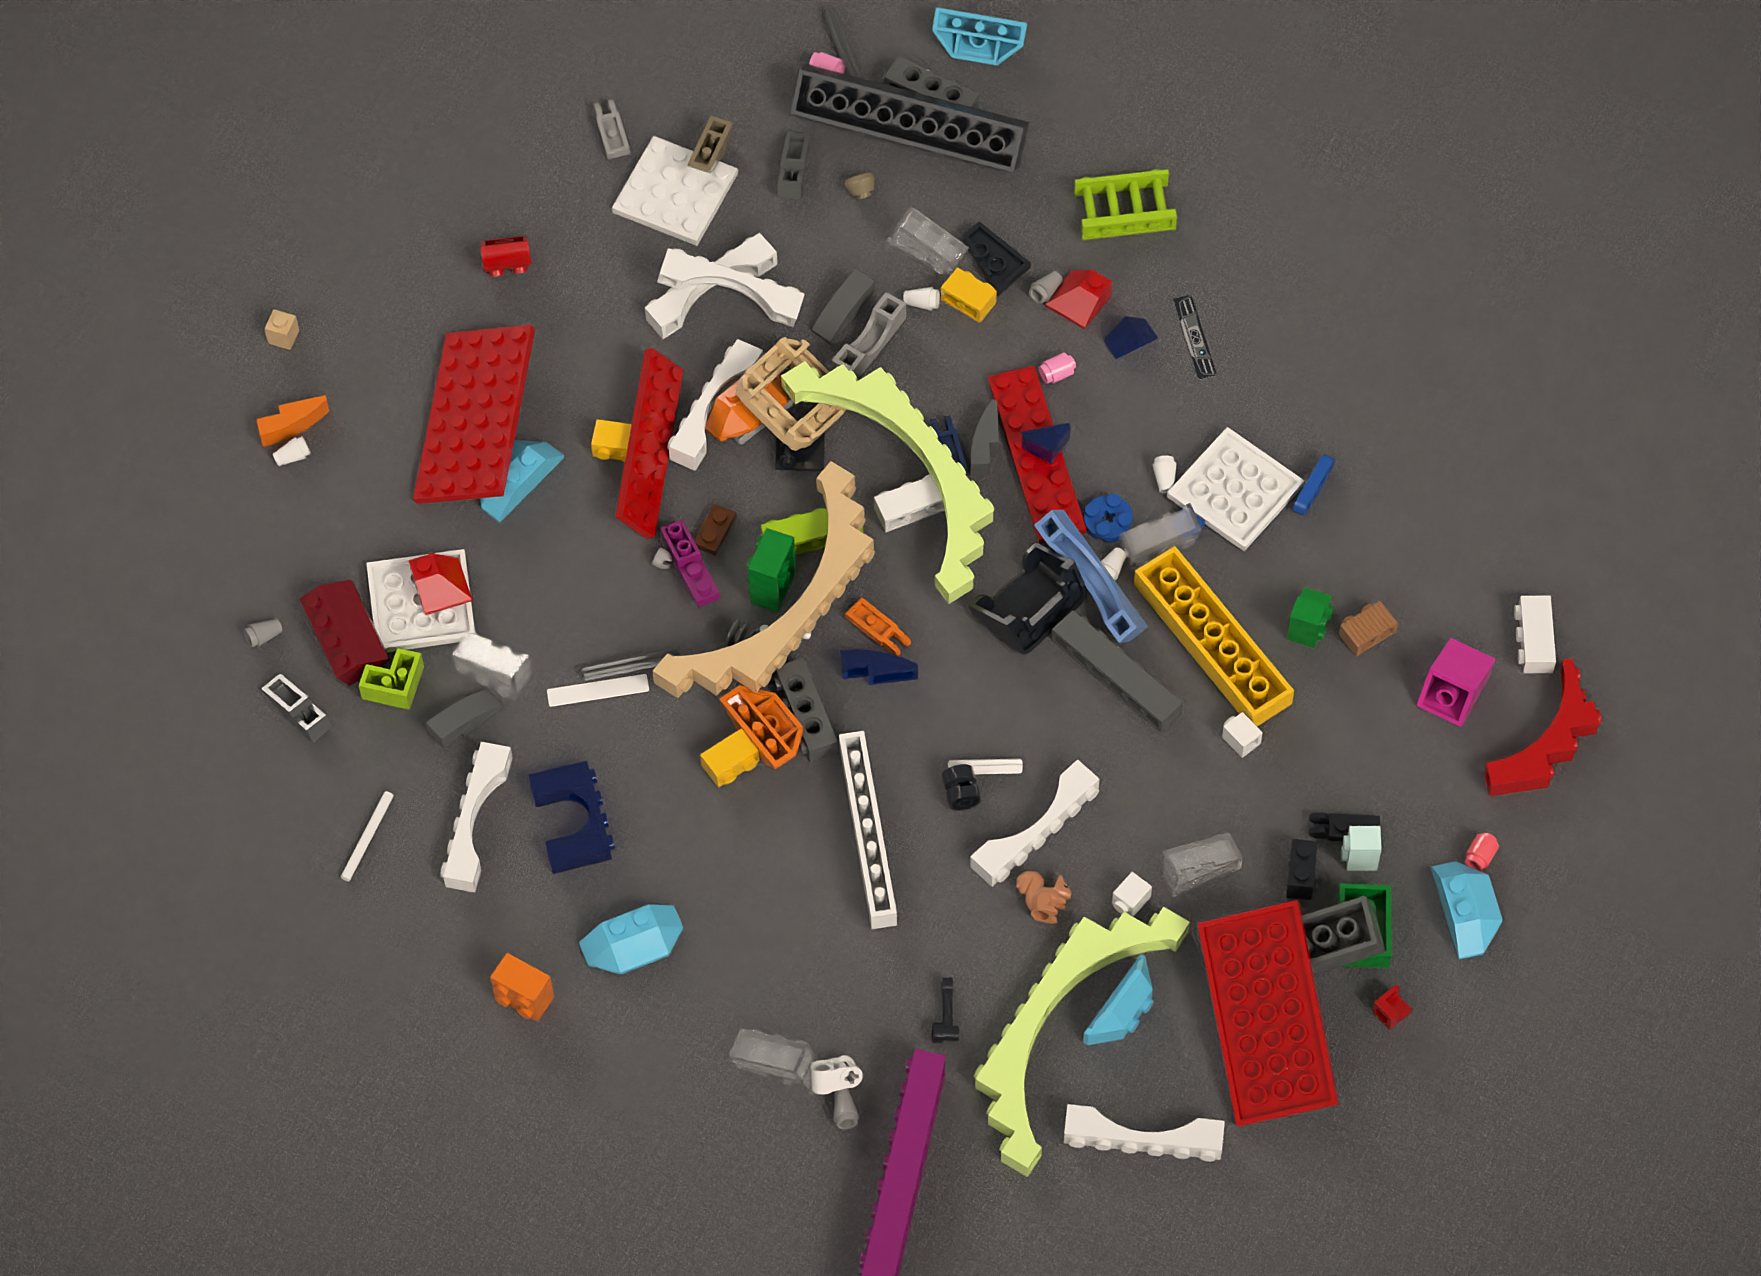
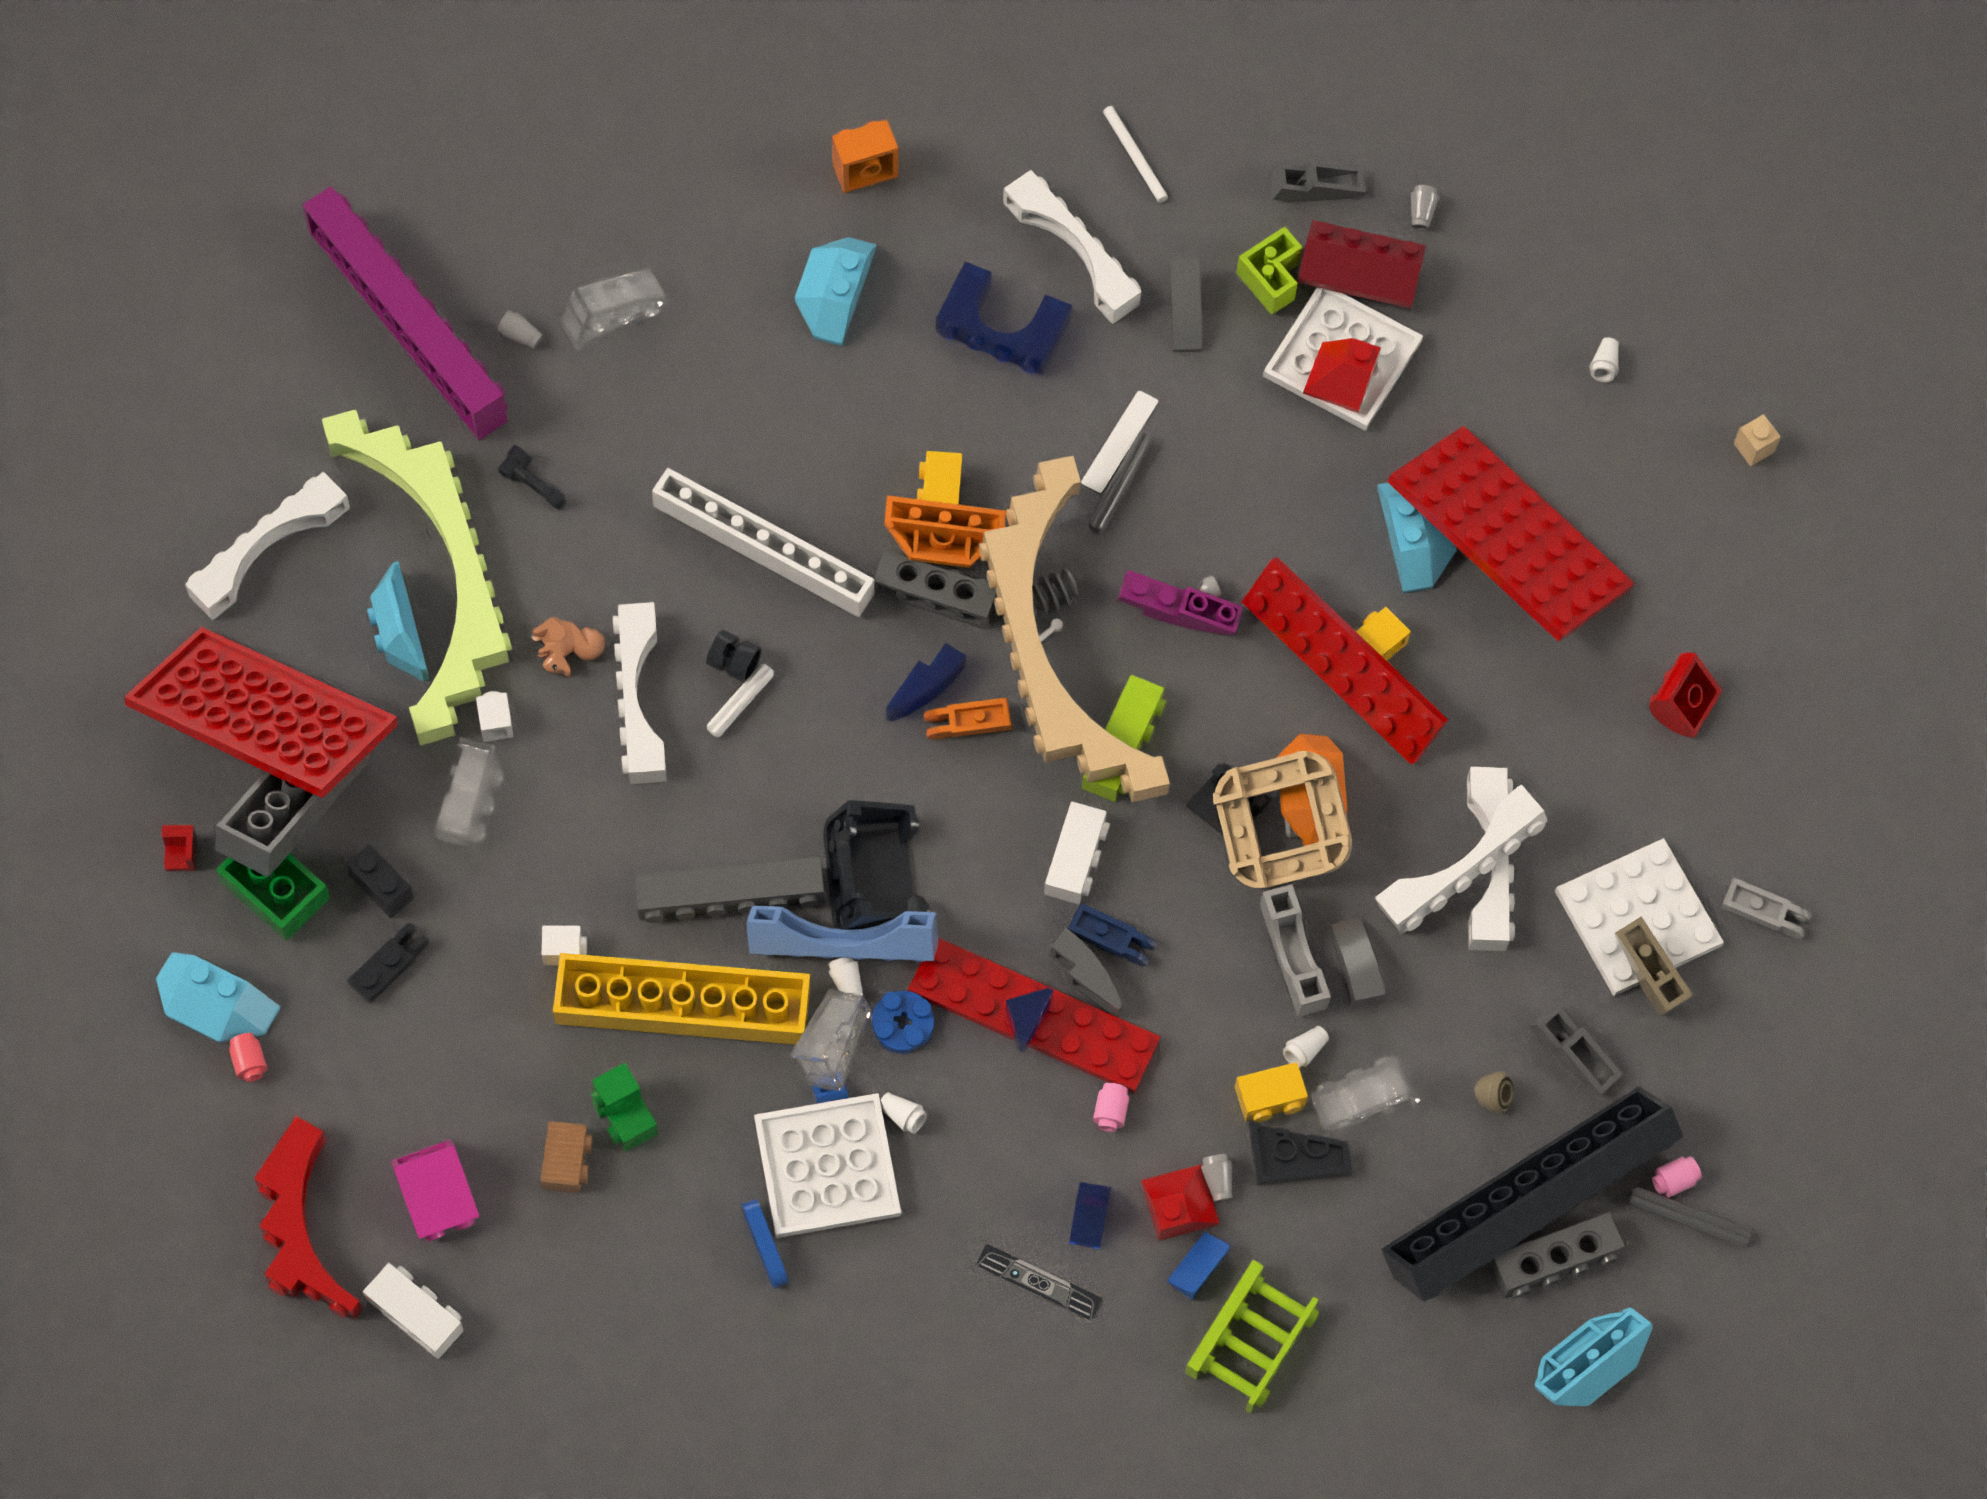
camera: 125 degrees right, 5 degrees up
(292, 420) = (1643, 379): orange slope -> none
(492, 665) = (1216, 361): clear wedge -> none
(690, 442) = (1315, 702): white arch -> none
(715, 529) = (1204, 661): reddish brown plate -> none
(771, 569) = (1099, 649): green brick -> none
(831, 1074) = (552, 345): white piece -> none
(884, 403) = (1188, 888): yellowish green arch -> none
(1108, 259) = (1199, 1265): none -> blue slope
(1362, 848) = (345, 943): light aqua brick -> none

